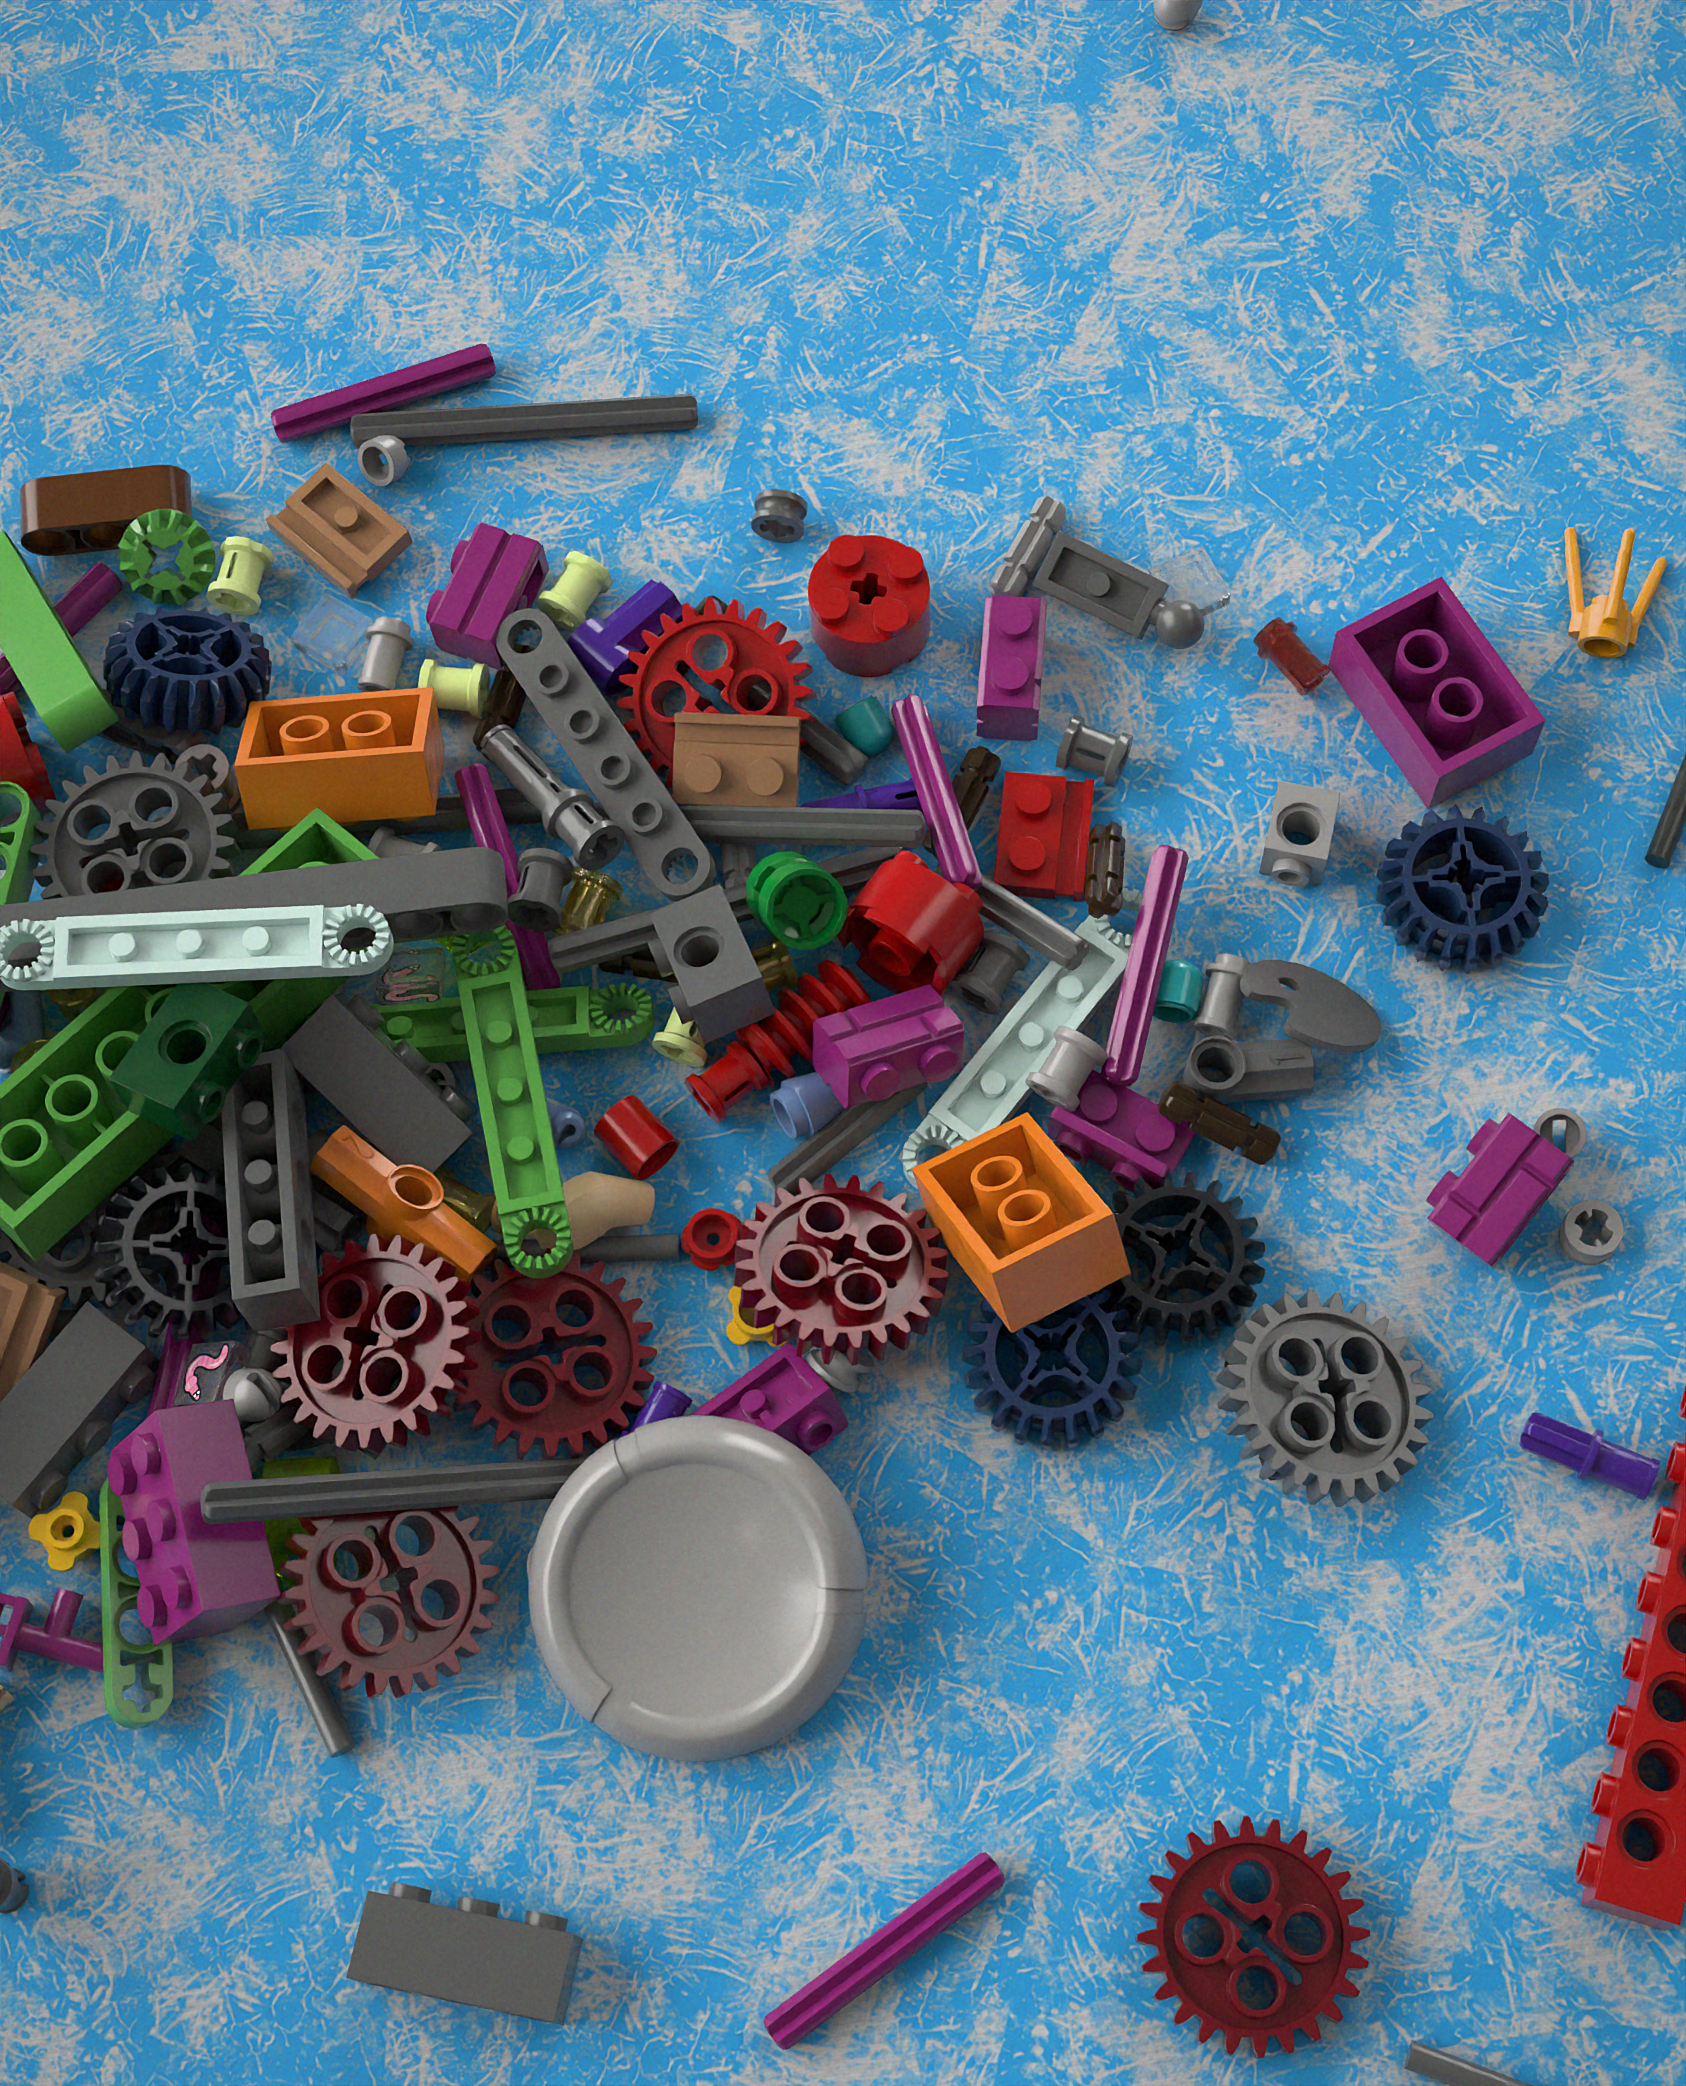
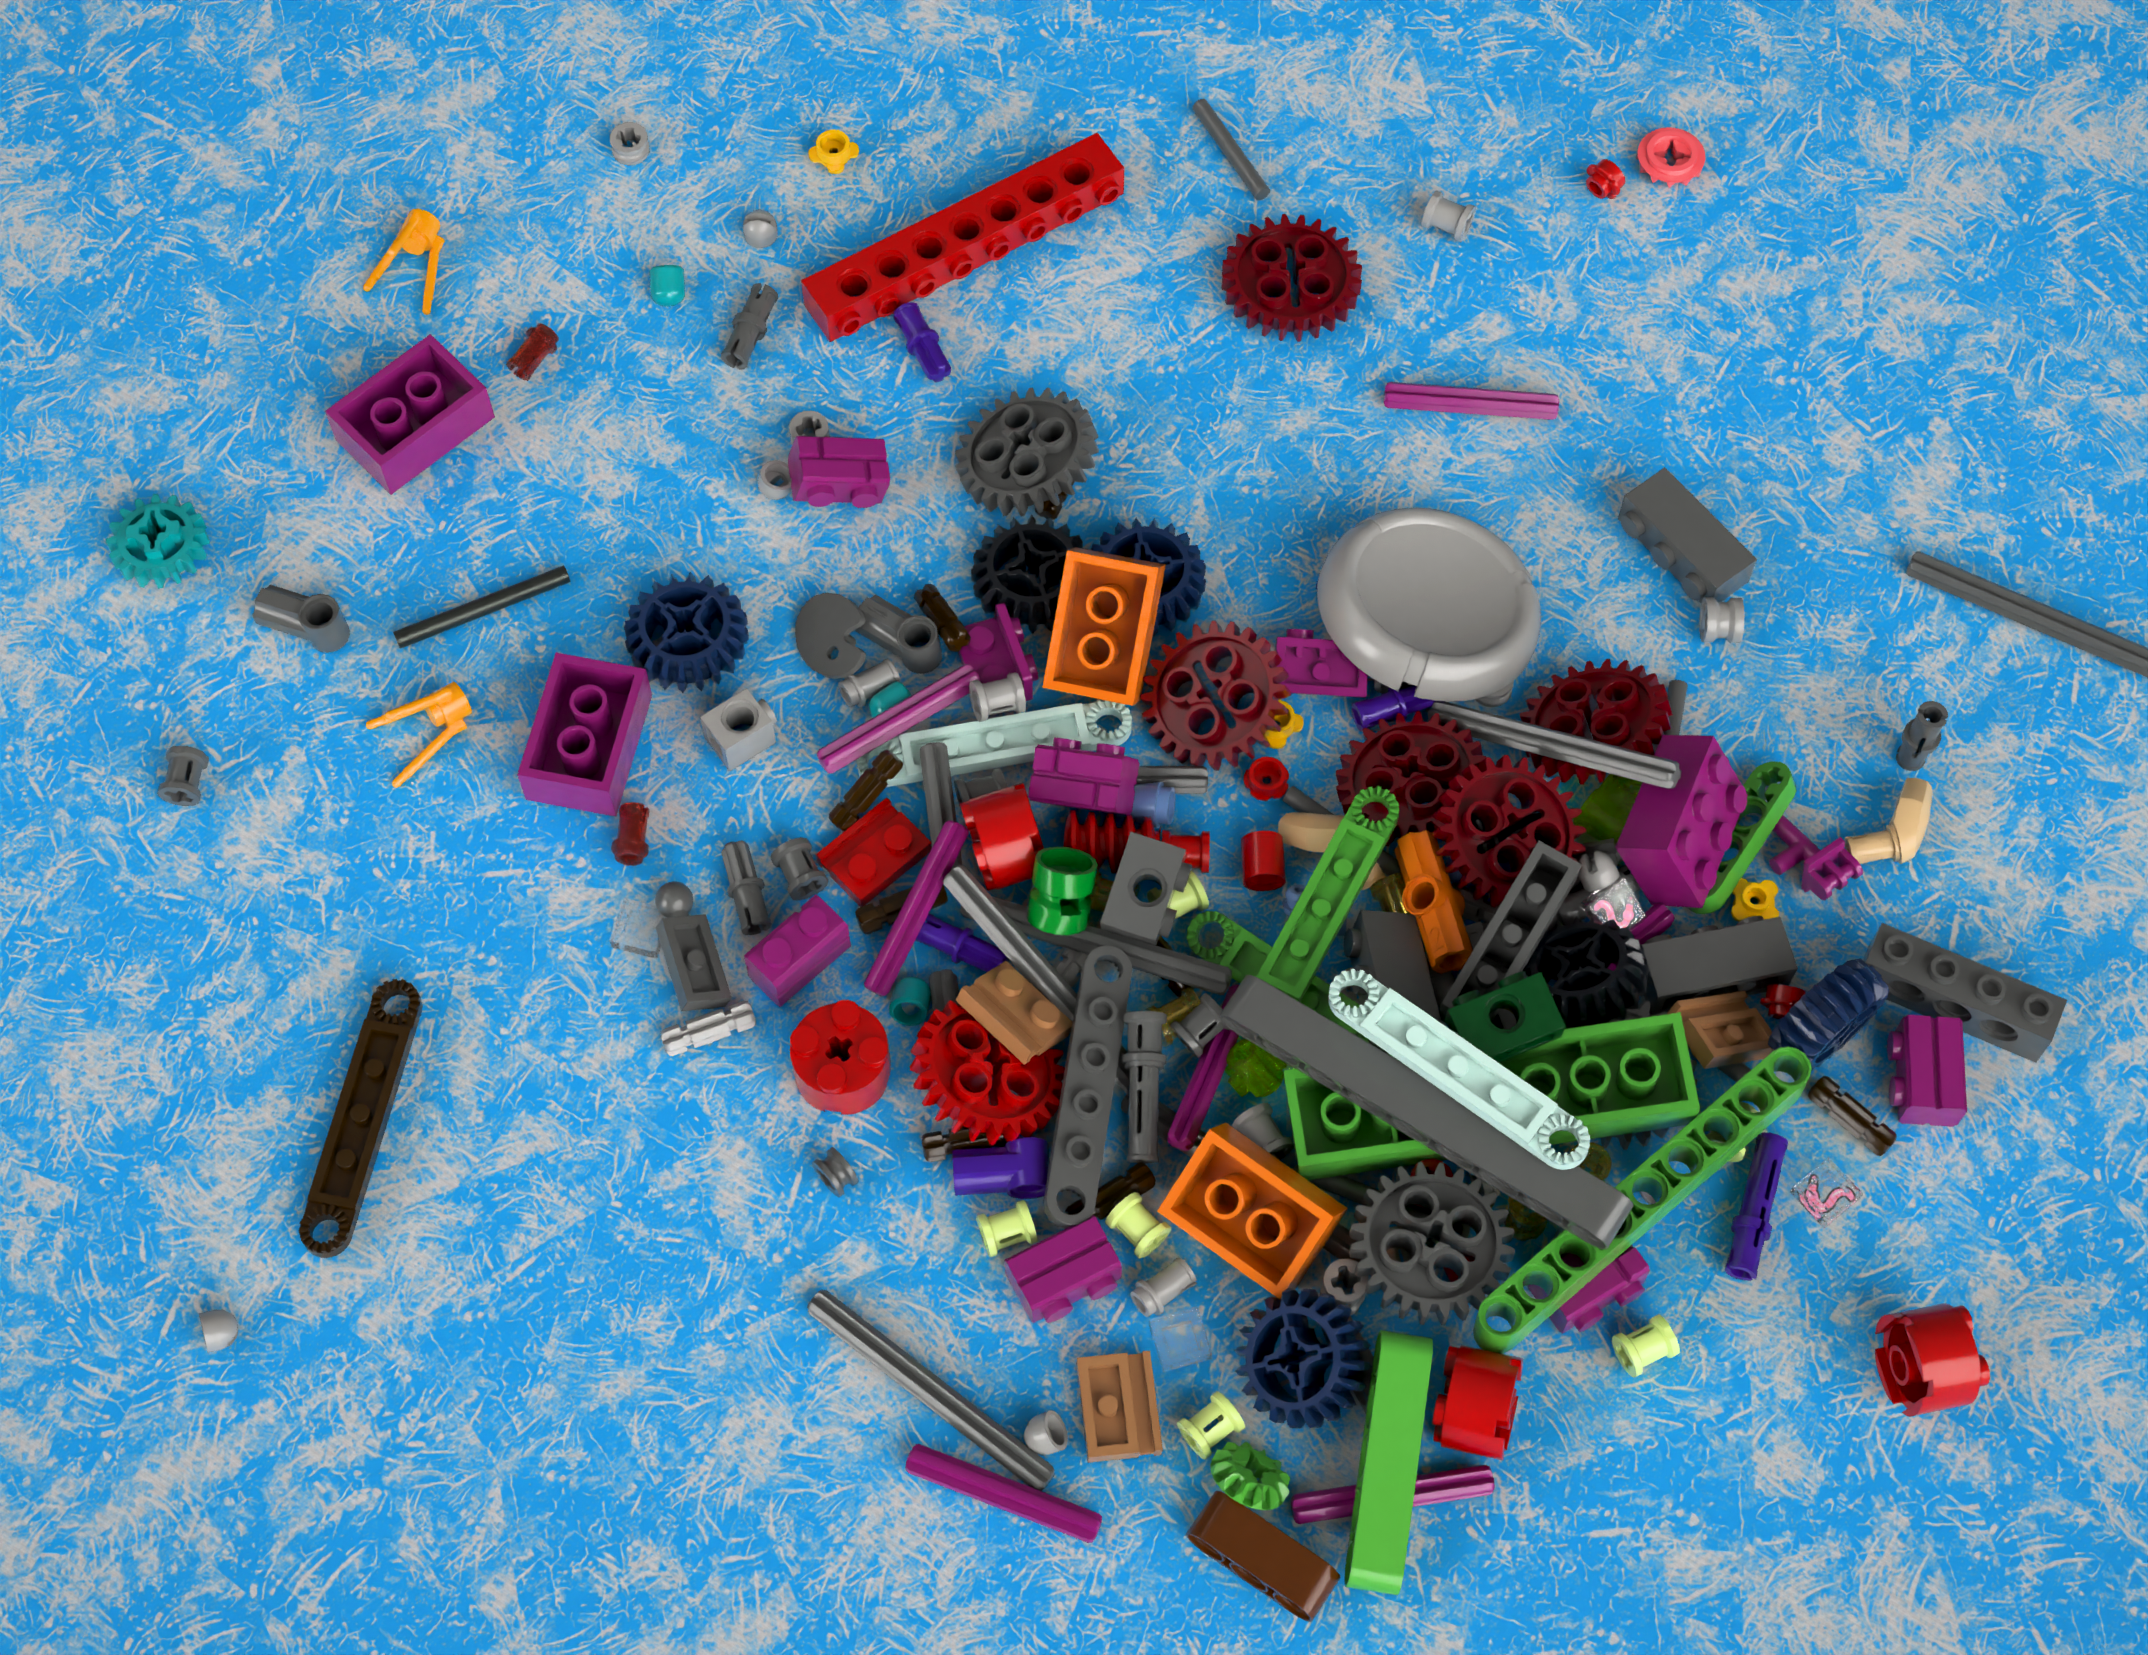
camera: 145 degrees left, 5 degrees down
(343, 1873) = (1721, 620): none -> light grey wheel
(1127, 694) = (745, 888): none -> dark grey axle
(1251, 239) = (360, 1118): none -> dark brown plate

